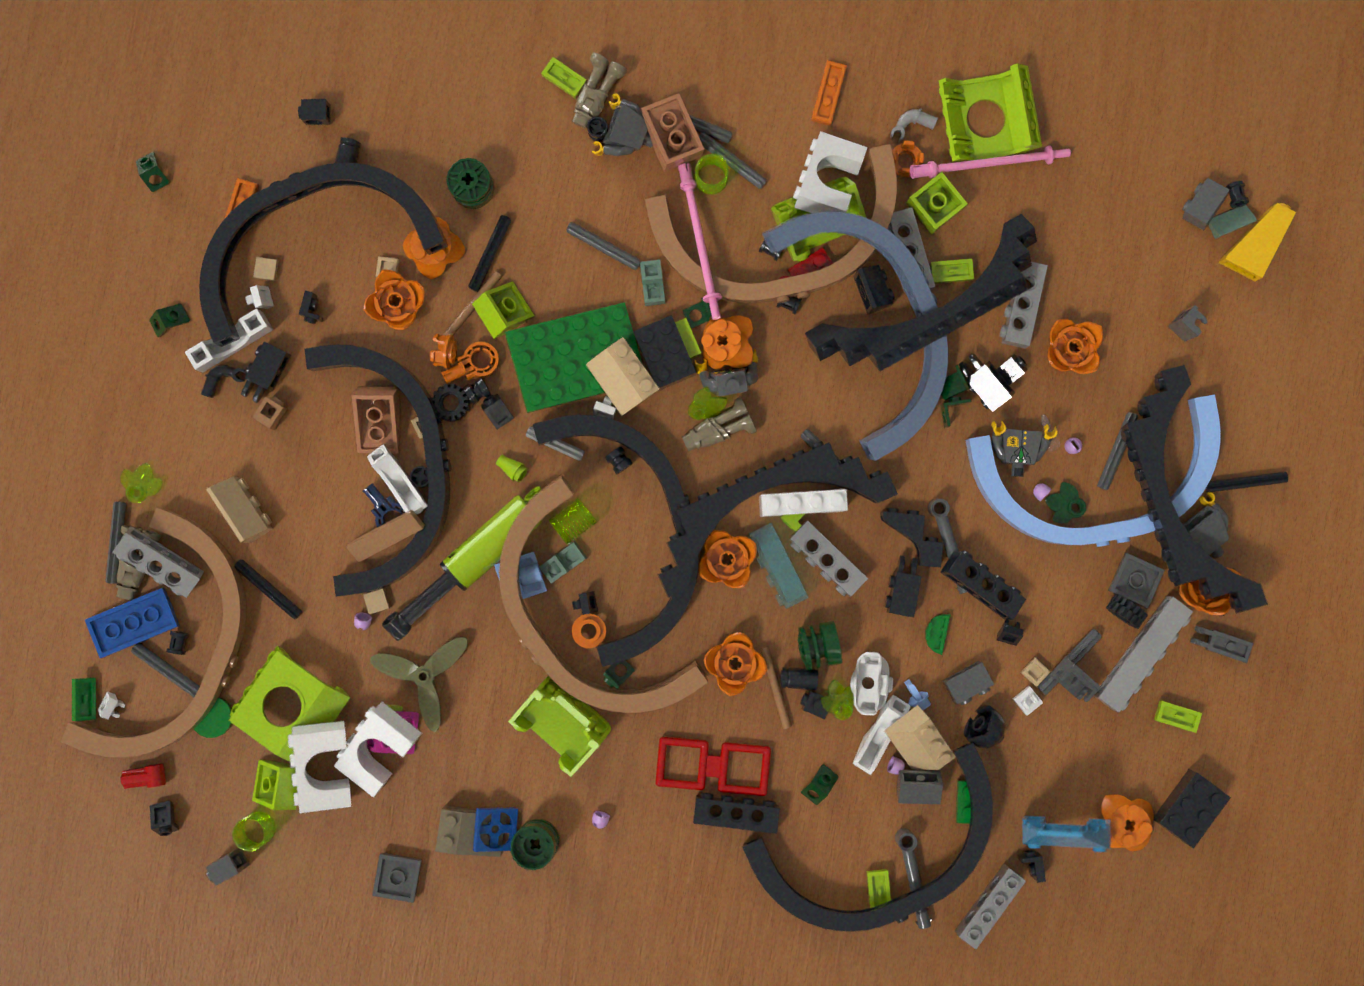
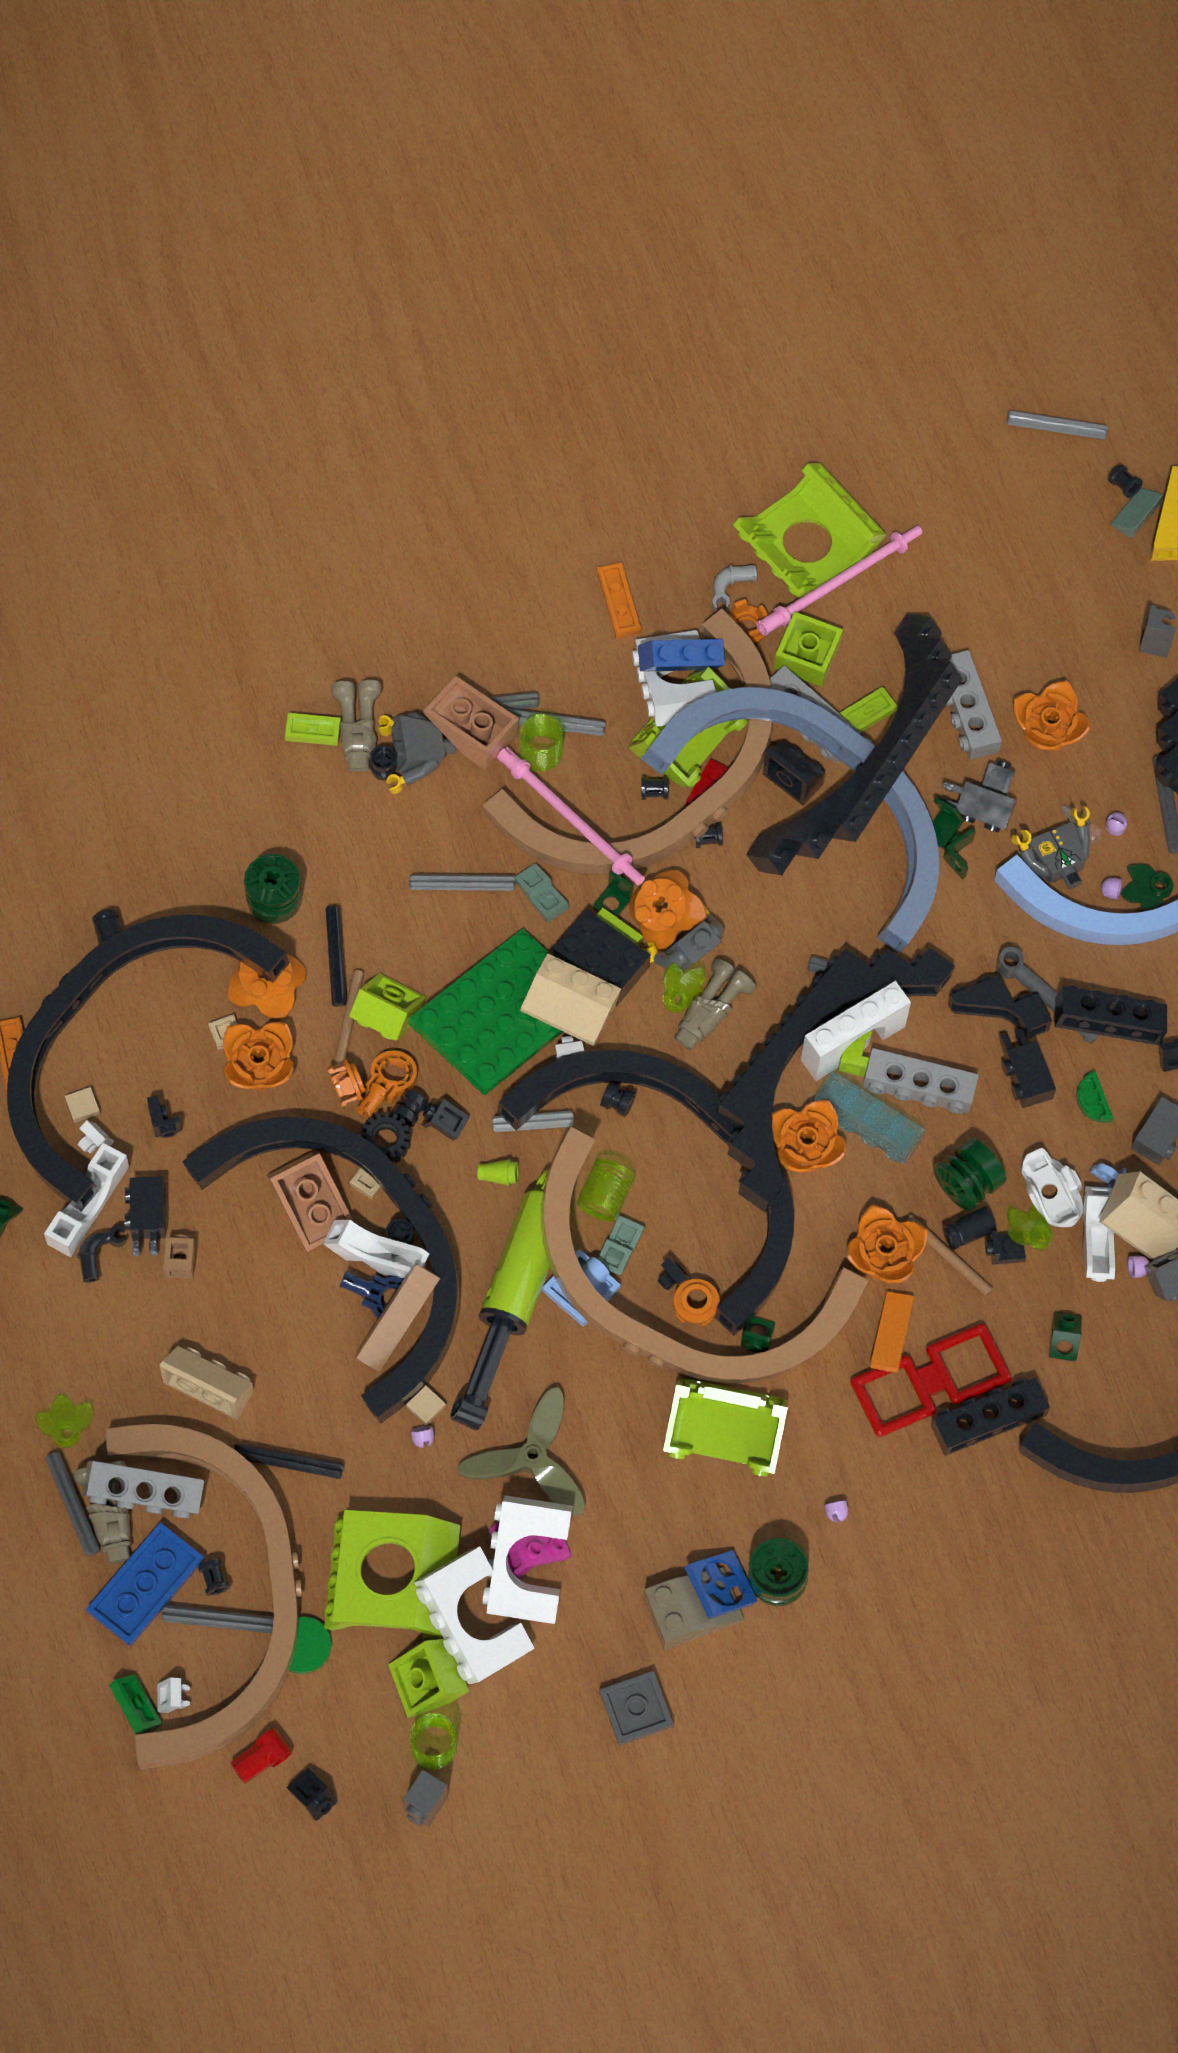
camera: 30 degrees left, 20 degrees down
(315, 112) = (46, 905): black brick -> none
(706, 721) = (892, 1332): none -> orange tile
(840, 165) = (681, 655): none -> blue brick
(1205, 203) = (1097, 506): dark grey brick -> none
(1216, 123) = (1057, 424): none -> axle

